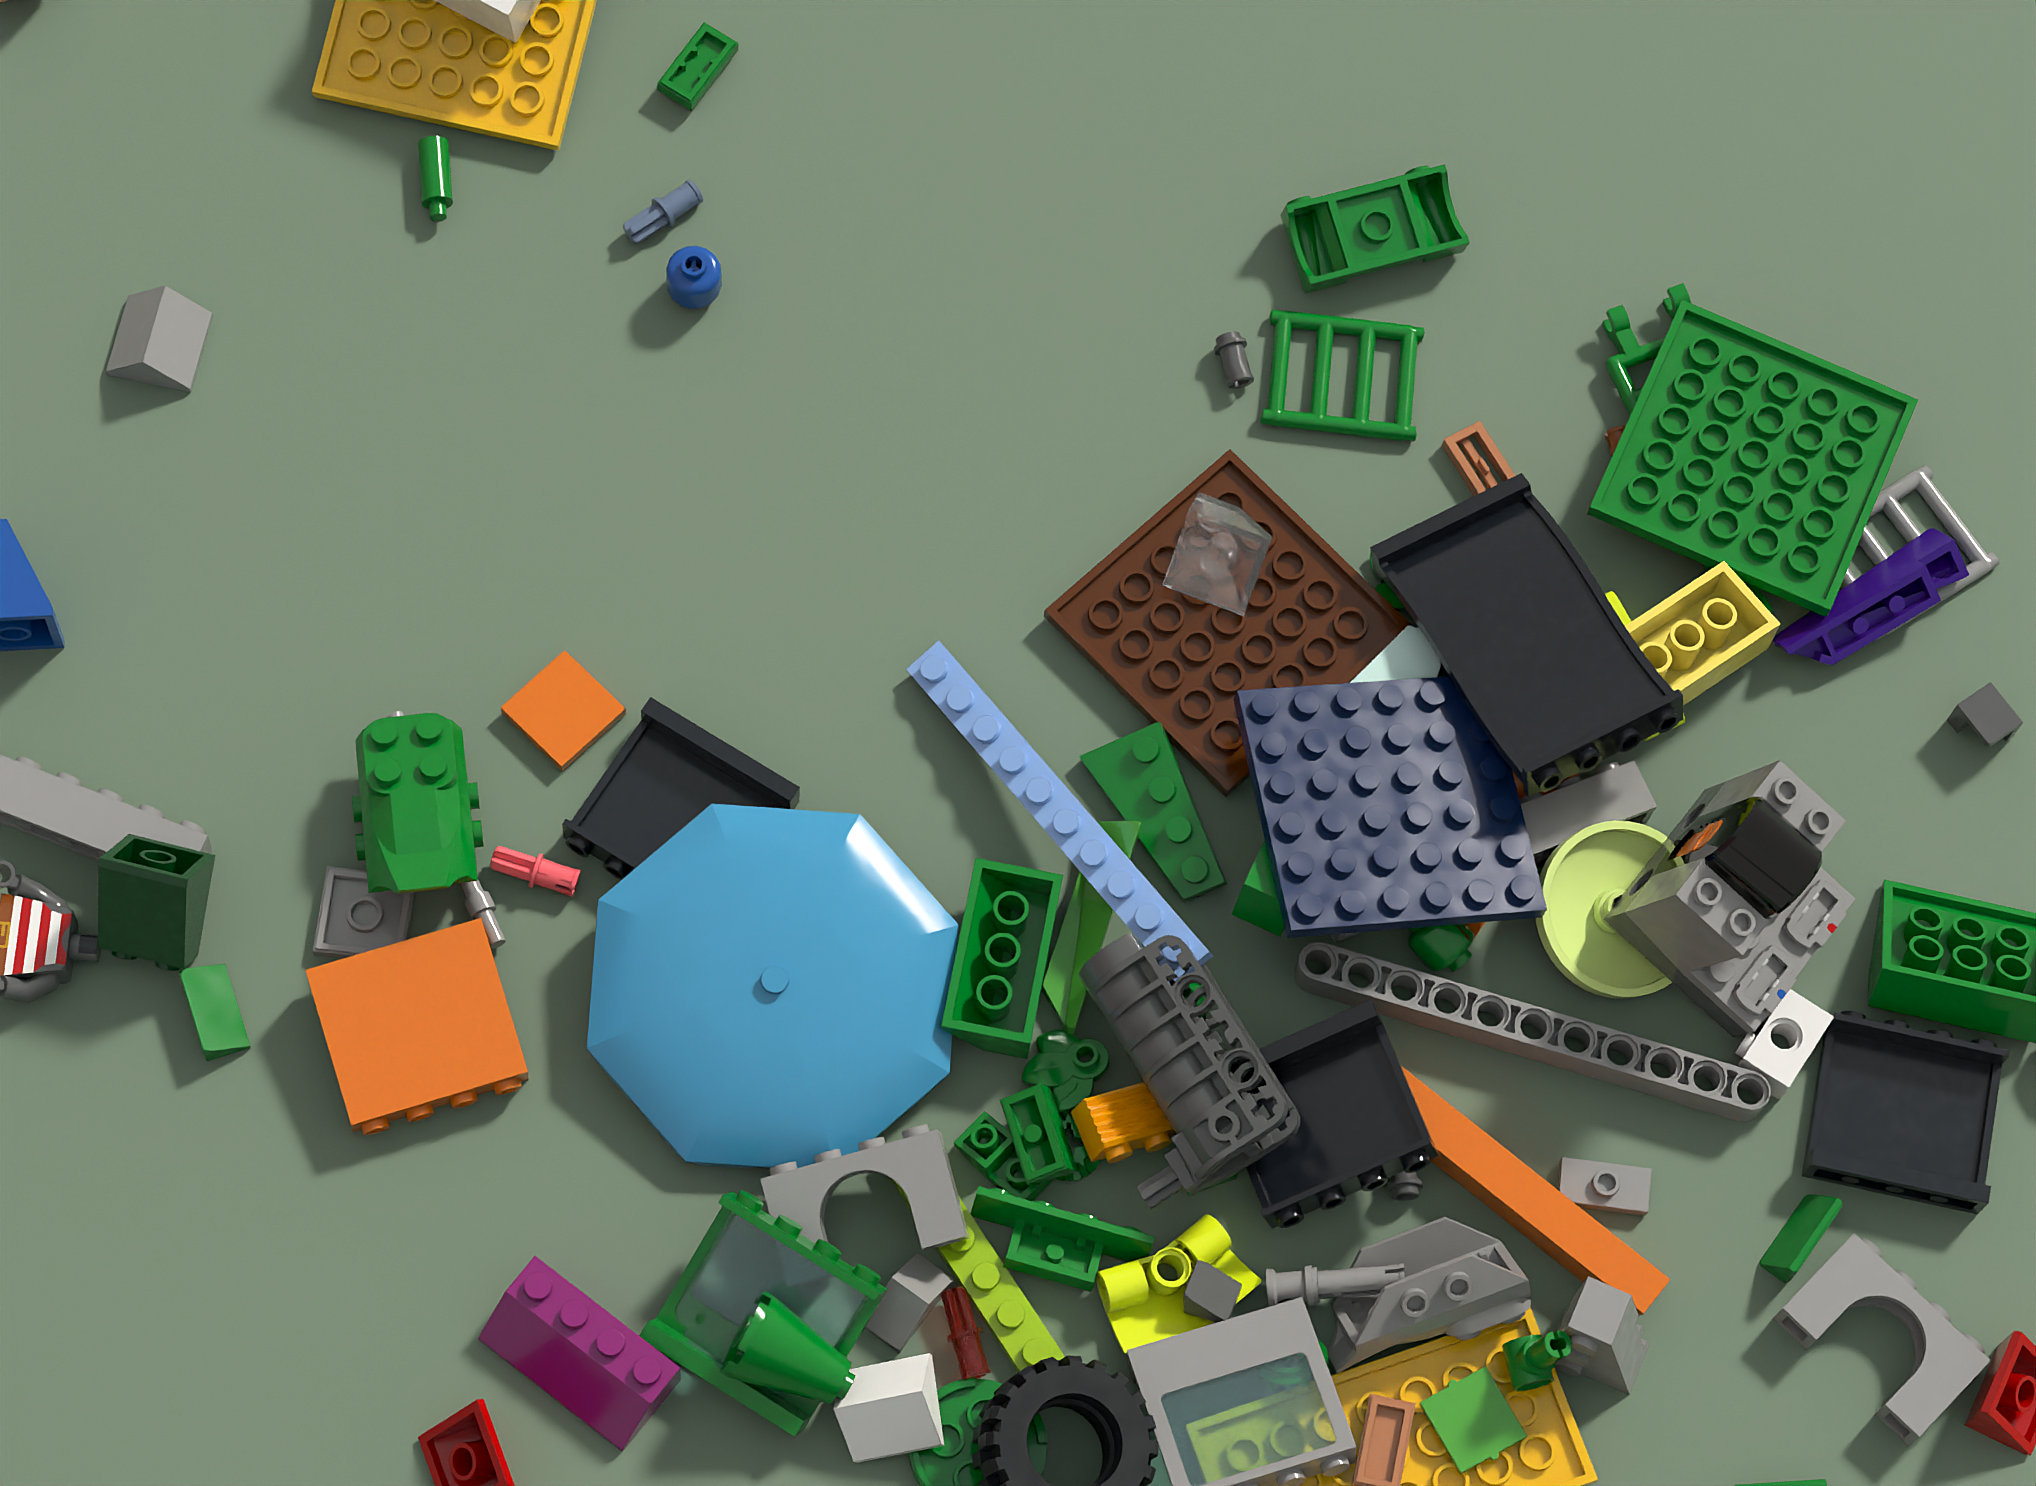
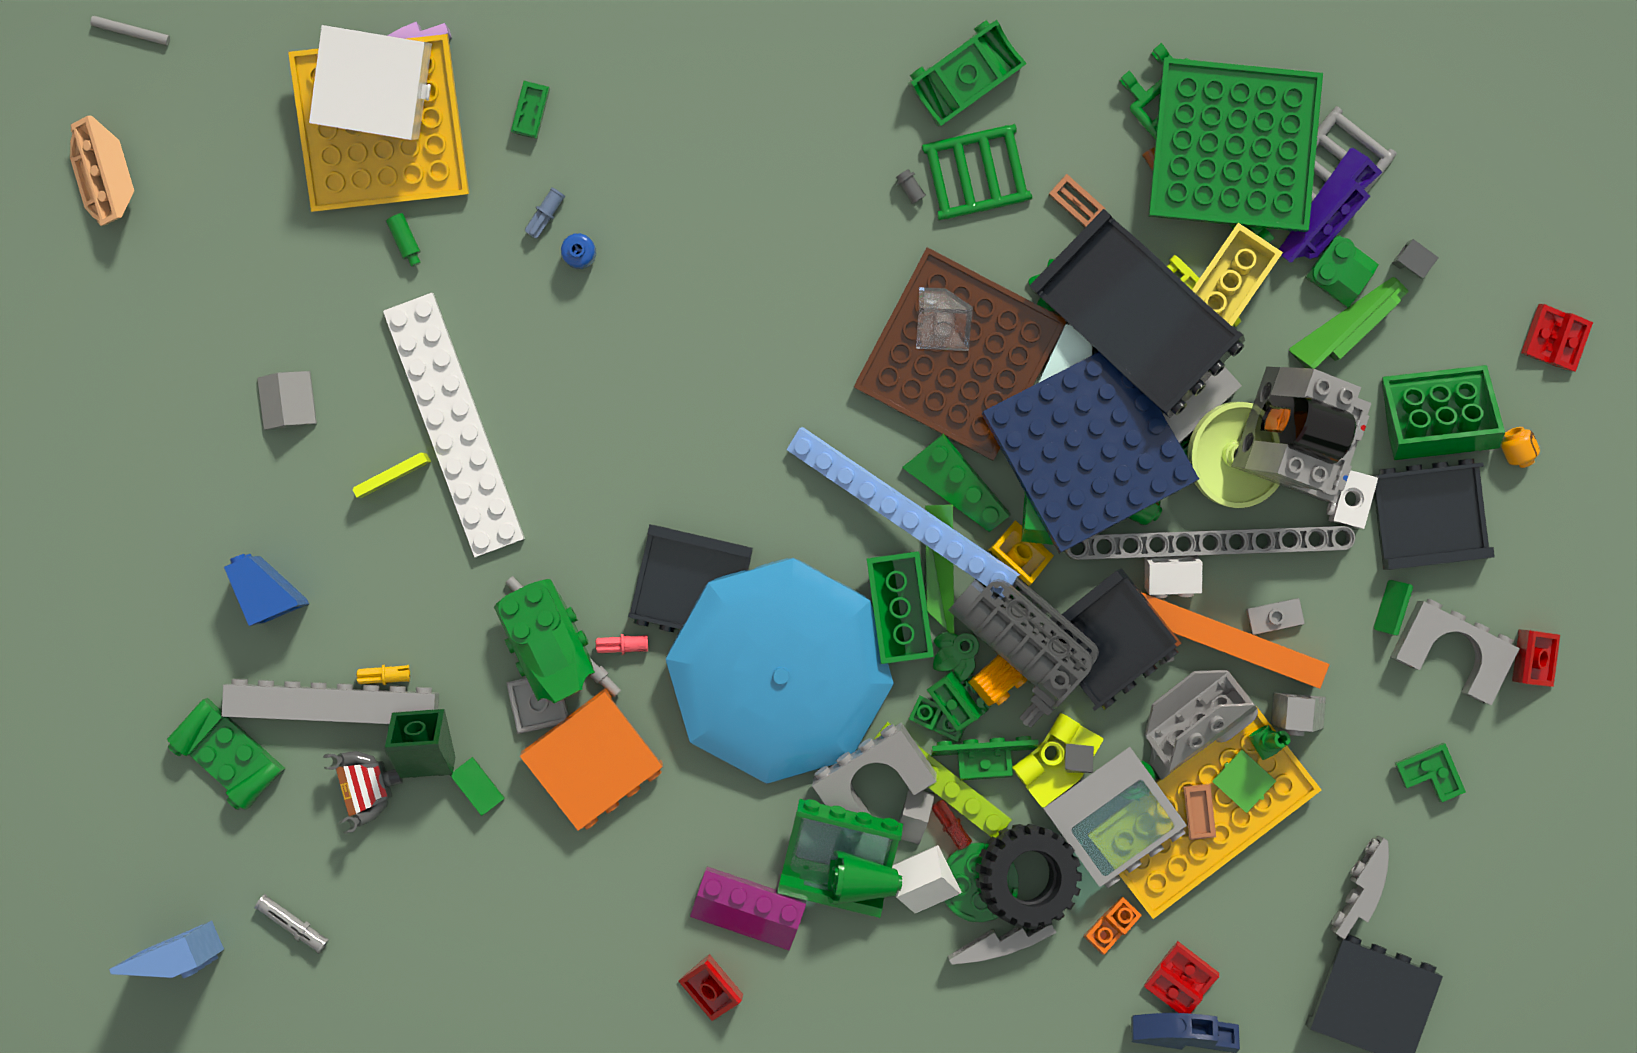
camera: 10 degrees left, 20 degrees up
(138, 787) = (383, 675): none -> yellow axle
(275, 497) = (391, 475): none -> neon yellow tile
(401, 466) = (453, 424): none -> white plate
(563, 710) = (602, 543): orange tile -> none
(1236, 957) = (1023, 557): none -> yellow slope
(1326, 1284) = (1132, 733): light grey pin -> none
(1458, 1059) = (1173, 576): none -> white brick
(1864, 700) = (1342, 270): none -> green slope
(1878, 780) = (1349, 326): none -> bright green wedge

